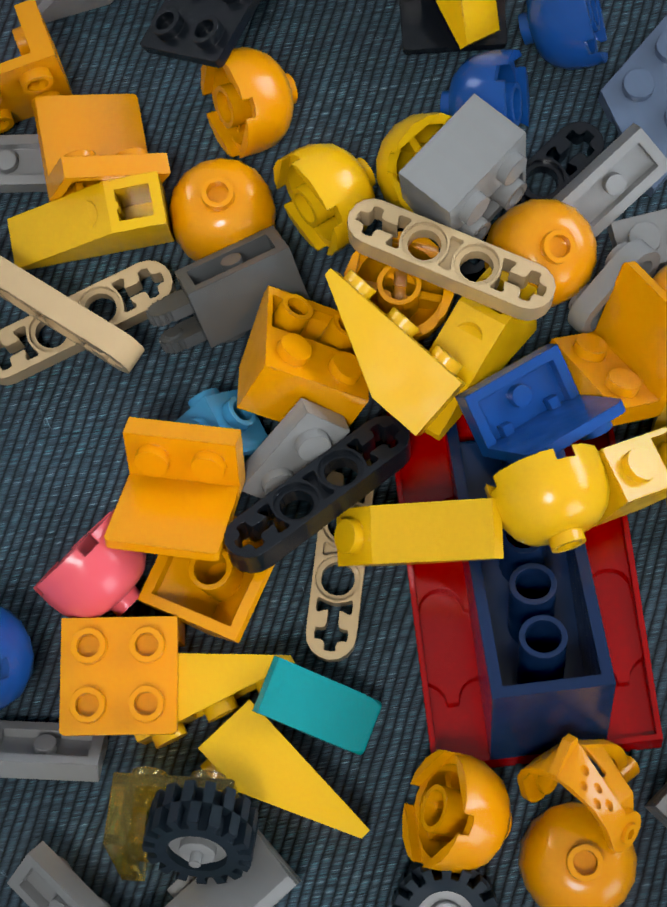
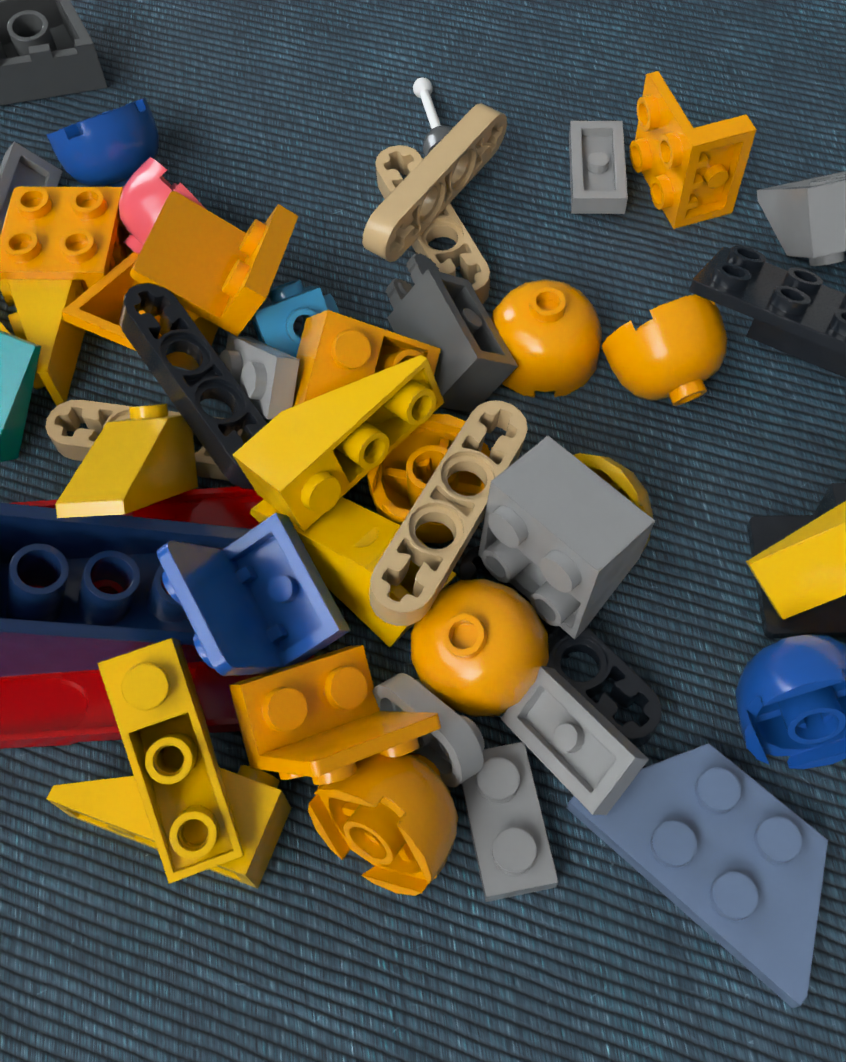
camera: 90 degrees right, 15 degrees down
(92, 141) = (611, 221): light orange bracket -> none
(93, 222) = (531, 227): yellow slope -> none
(323, 189) = (565, 403): yellow cylinder -> none
(494, 80) = (677, 601): blue cylinder -> none
(552, 498) = (116, 578): yellow cylinder -> none

